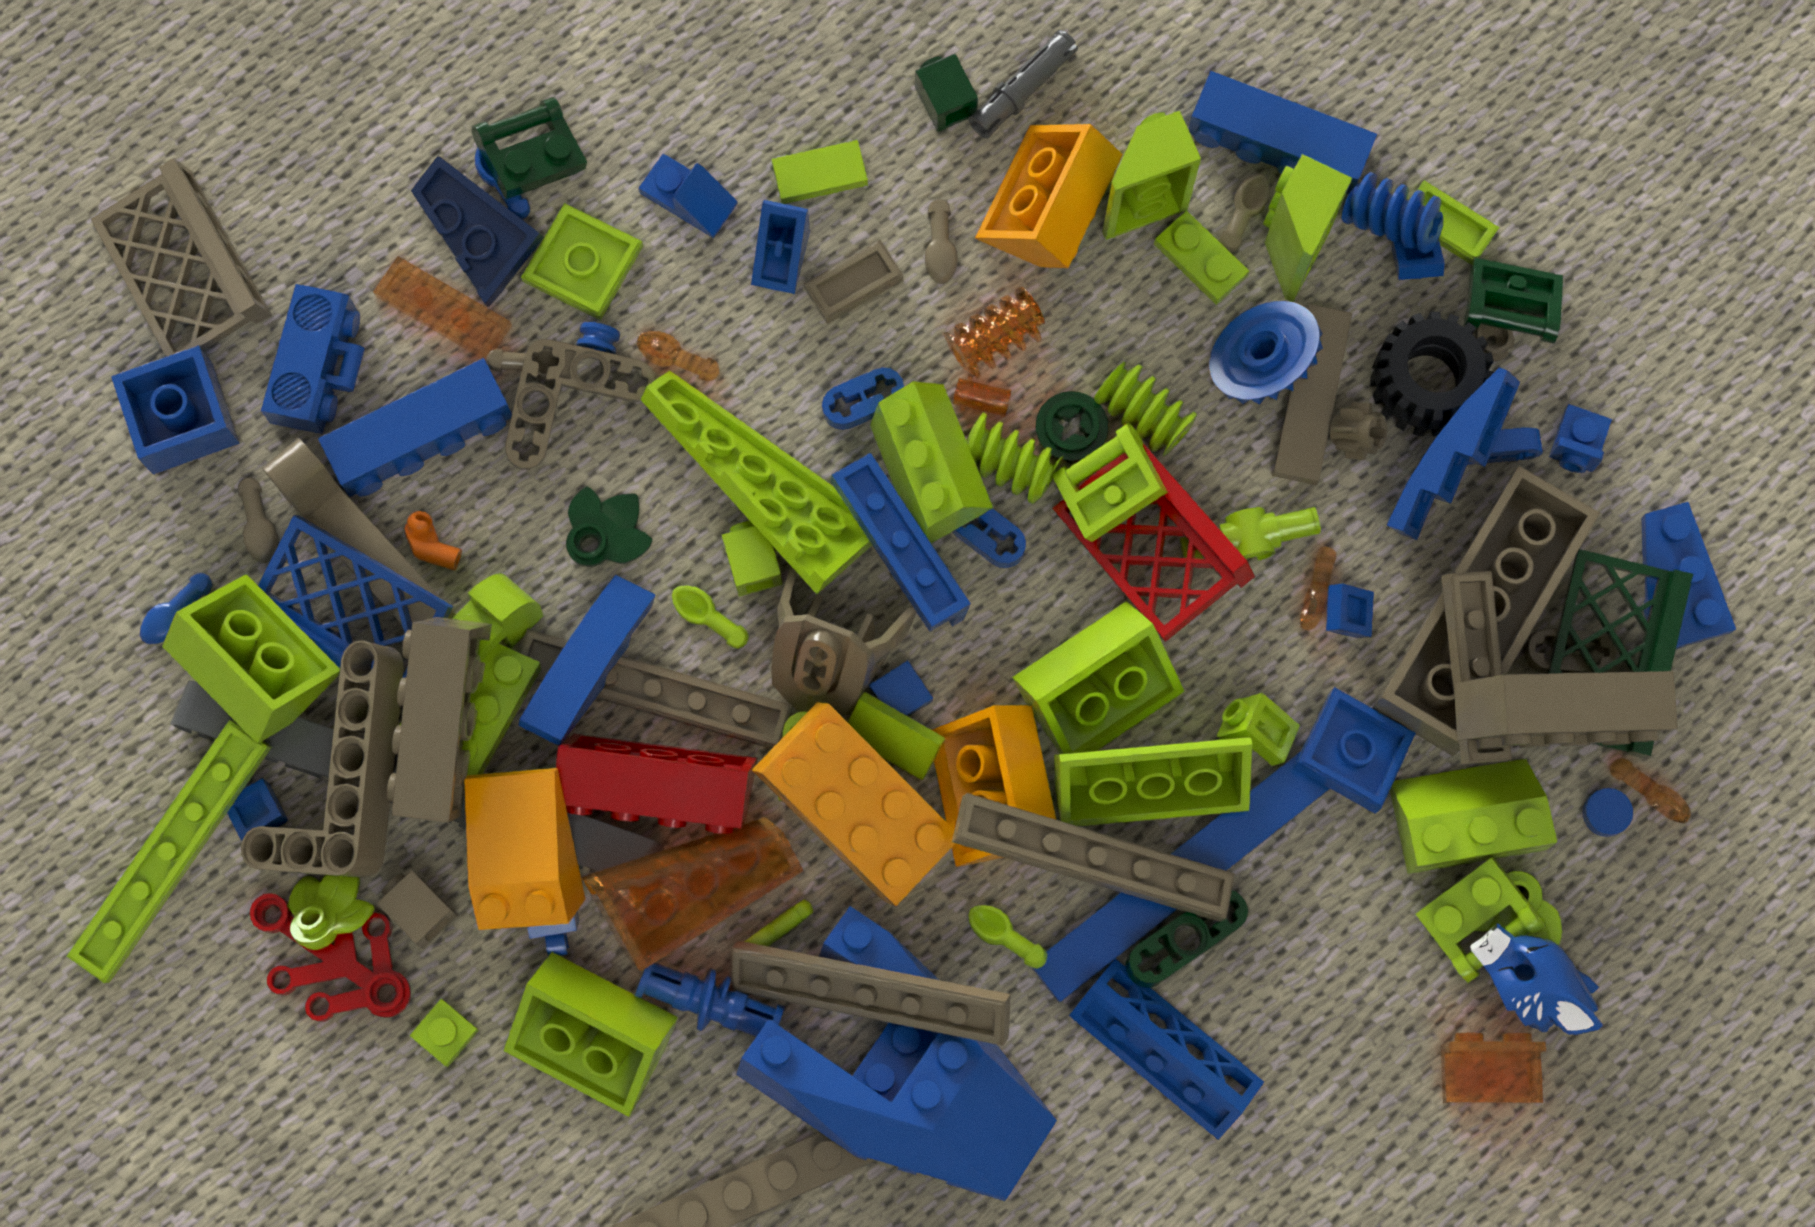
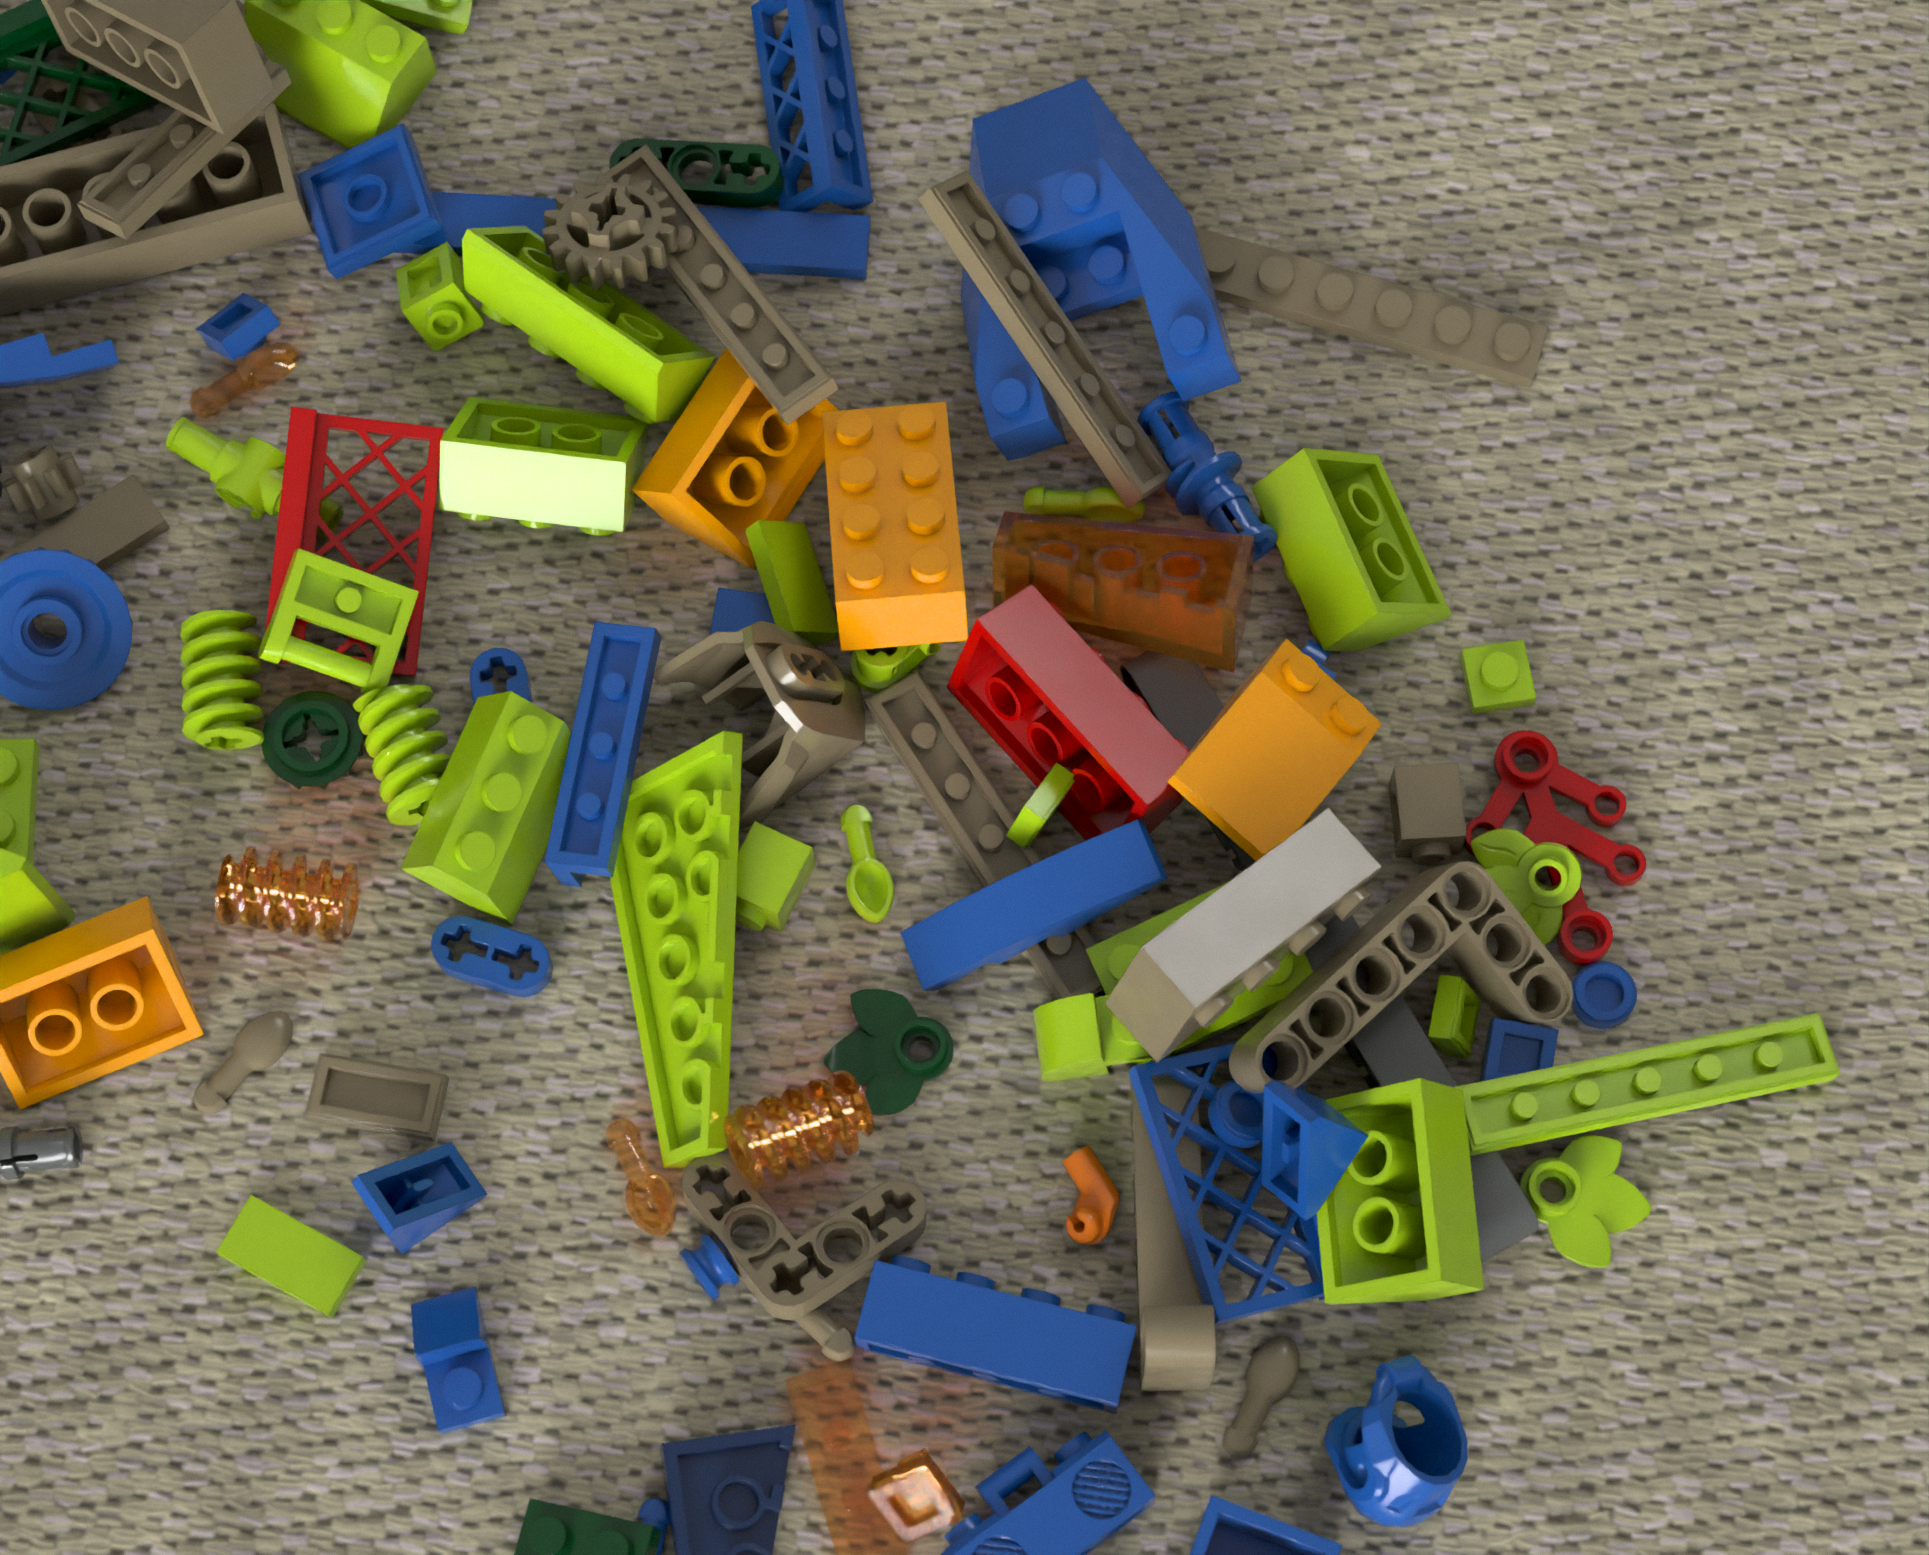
camera: 135 degrees left, 5 degrees down
(152, 538) = (1396, 1469): none -> blue helmet
(155, 766) = (1593, 1200): none -> lime plate
(159, 618) = (1457, 1365): blue piece -> none
(236, 891) = (1603, 995): none -> blue tile
(306, 801) = (1454, 1017): none -> lime tile
(314, 640) = (1304, 1147): none -> blue slope
(374, 629) = (1237, 1115): none -> blue tile
(389, 318) = (916, 1496): none -> clear orange tile
(582, 261) = (642, 1384): lime tile -> none
(610, 436) = (796, 1125): none -> clear orange piece
(633, 720) = (1041, 806): none -> lime tile
(945, 91) = (68, 1218): dark green brick -> none
(978, 397) = (371, 848): clear orange pin -> none
(996, 929) = (866, 327): lime piece -> none
(1197, 821) = (610, 231): none -> dark tan gear

